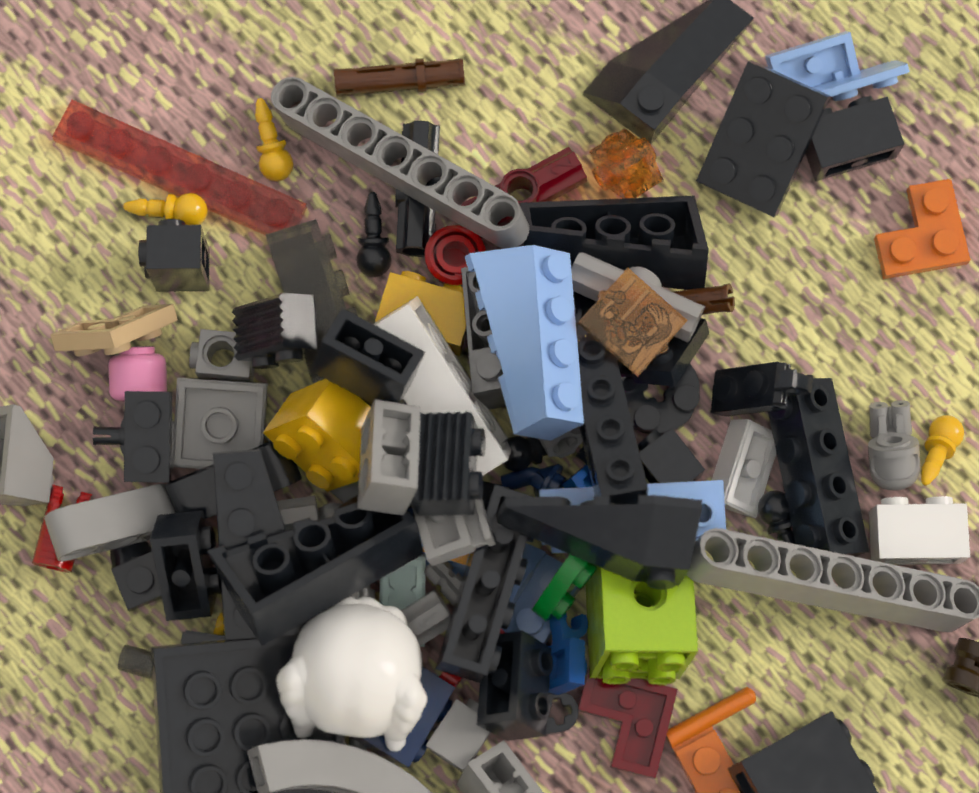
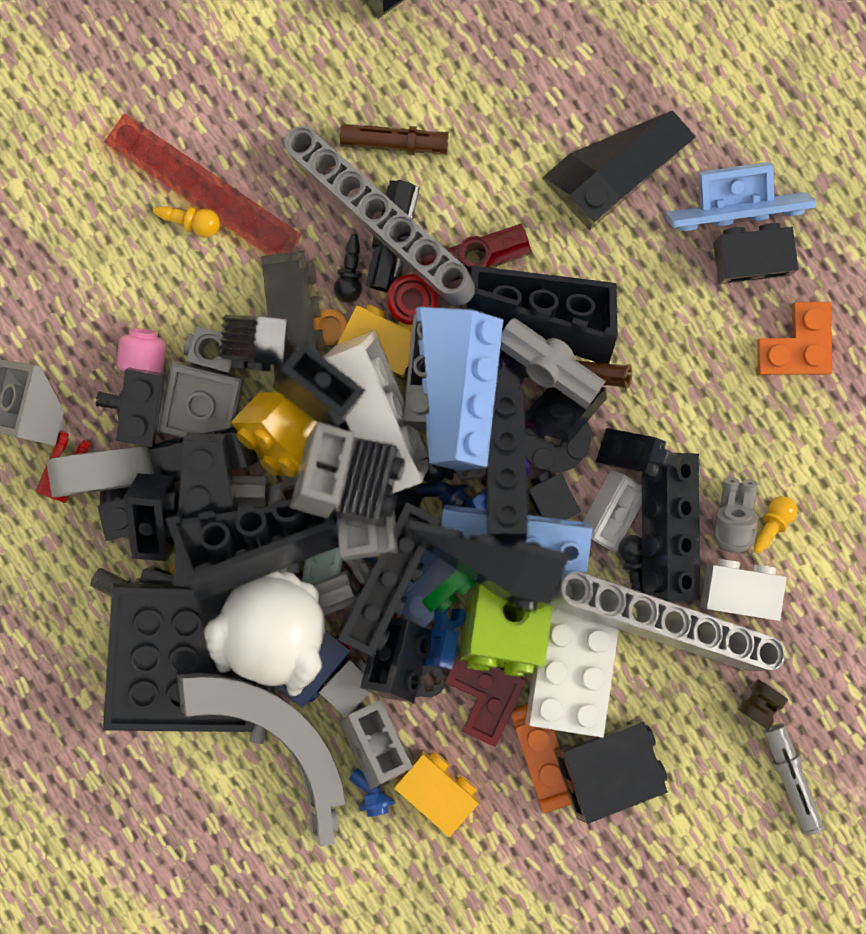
camera: 15 degrees right, 10 degrees up
(116, 333) = (126, 319): tan plate -> none
(175, 256) = (185, 262): black brick -> none
(275, 161) = (281, 193): yellow bar -> none
(365, 302) = (333, 325): none -> light orange tile
(625, 164) = (565, 246): clear orange brick -> none
(632, 321) = (543, 387): clear orange piece -> none
(737, 674) = (577, 675): none -> white brick
(763, 138) = (682, 243): black plate -> none

